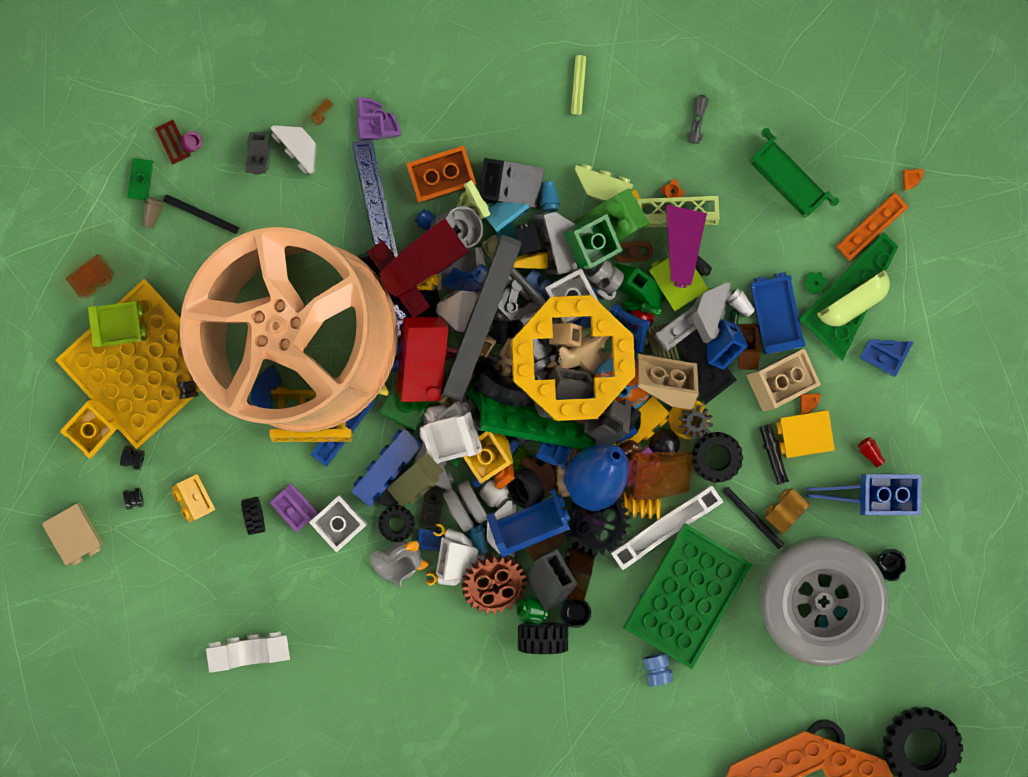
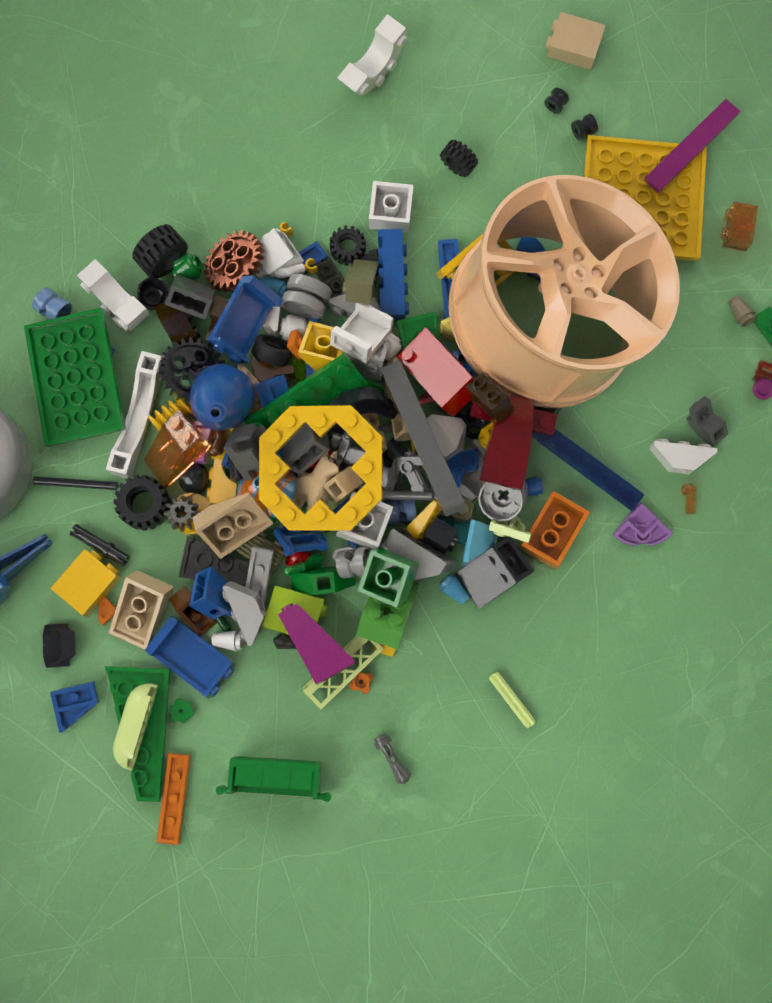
camera: 140 degrees right, 10 degrees down
(67, 369) = (692, 146): none -> magenta tile
(91, 427) = (635, 118): yellow slope -> none
(117, 324) = (689, 205): lime panel -> none
(192, 498) = (513, 137): yellow bracket -> none
(201, 214) = (703, 343): black bar -> none
(294, 507) = (434, 192): medium lavender plate -> none
(398, 561) = (320, 219): light grey hair -> none
(409, 302) = (490, 398): none -> dark brown brick
(601, 184) = (422, 635): yellowish green slope -> none
(607, 632) = (126, 309): none -> white brick
(633, 254) = (350, 605): reddish brown plate -> none
(786, 510) = (51, 510): pearl gold brick -> none
(862, 405) = (58, 645): none -> black slope
(871, 451) = (21, 614): red cone -> none
(912, 178) = (174, 869): orange tile -> none

